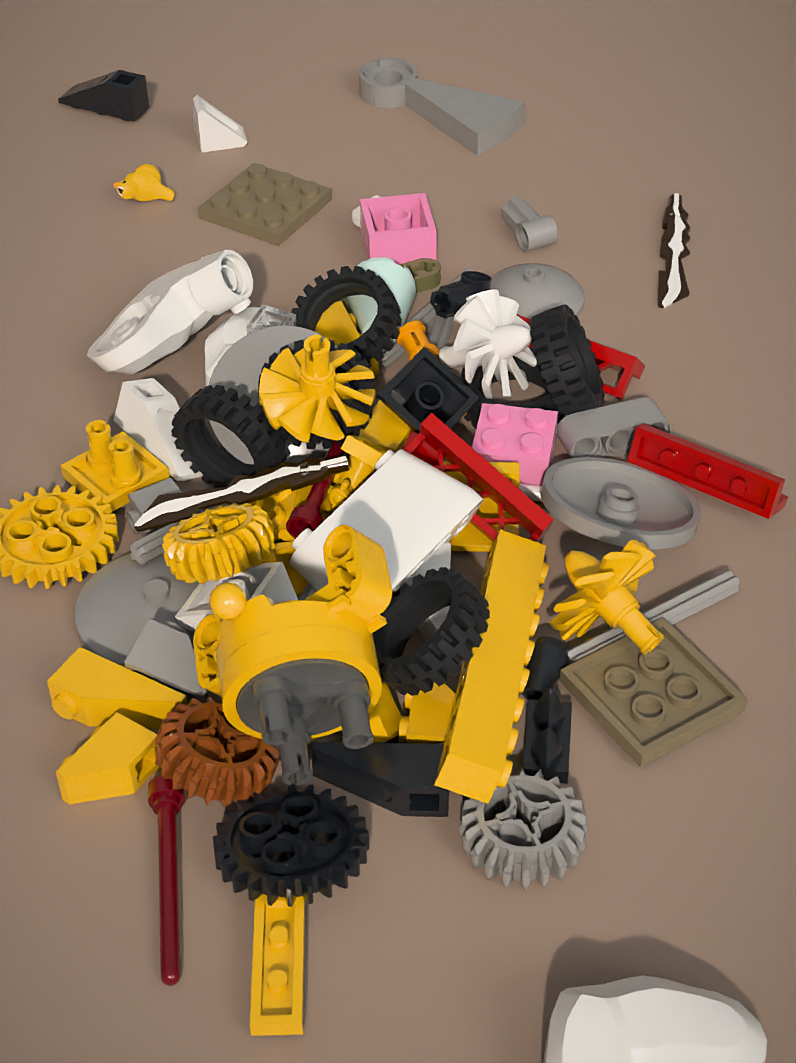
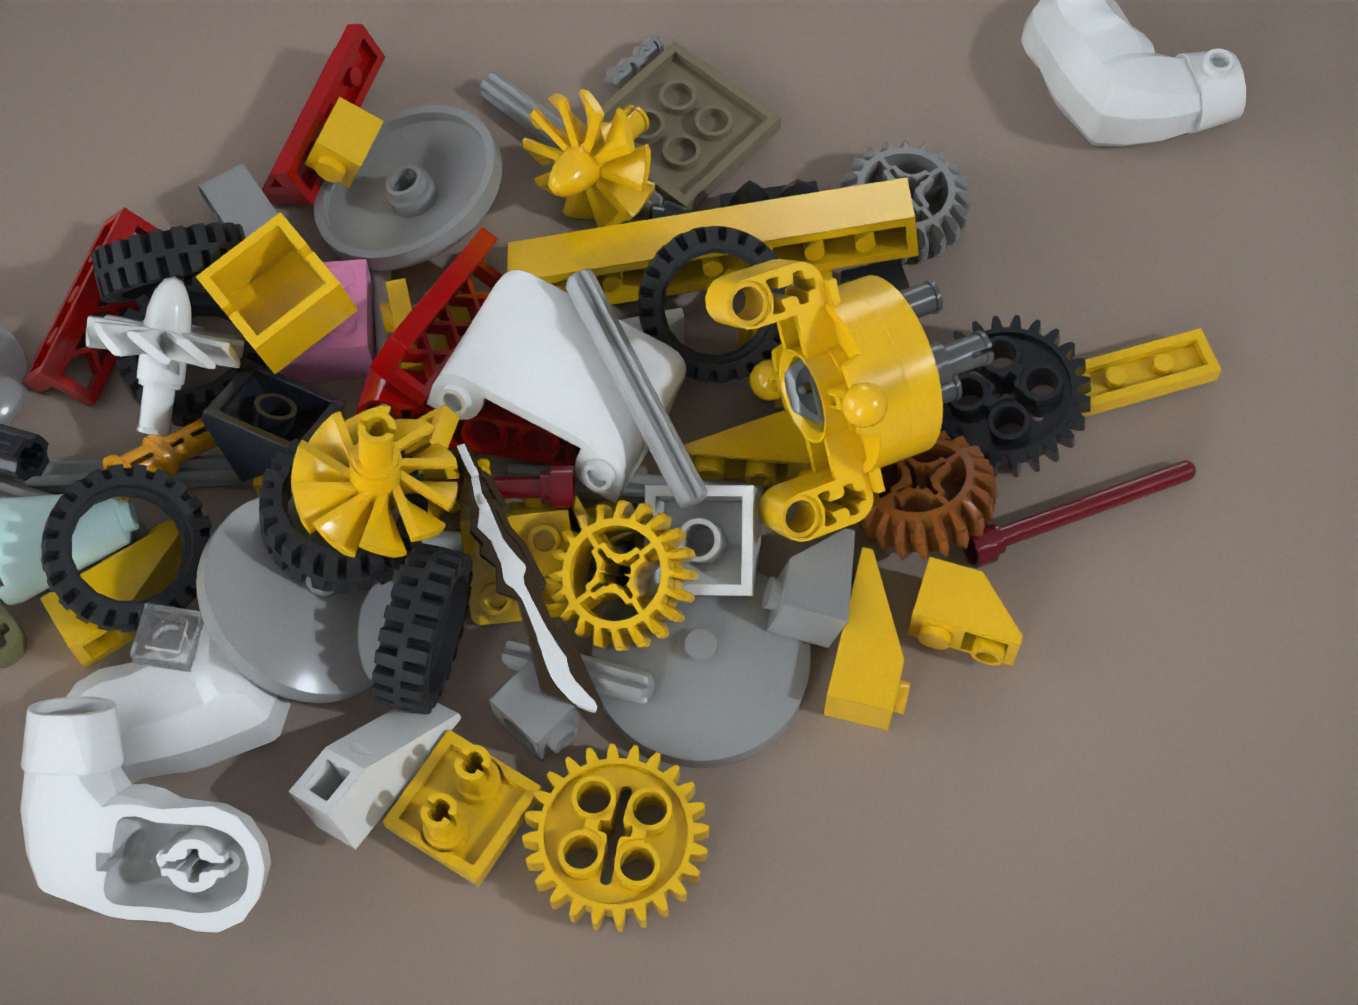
camera: 105 degrees left, 20 degrees up
(390, 537) = (636, 389): none -> light grey axle
(524, 388) = (277, 293): none -> yellow piece
(659, 459) = (343, 143): none -> yellow brick
(742, 681) = (631, 66): none -> light grey piece

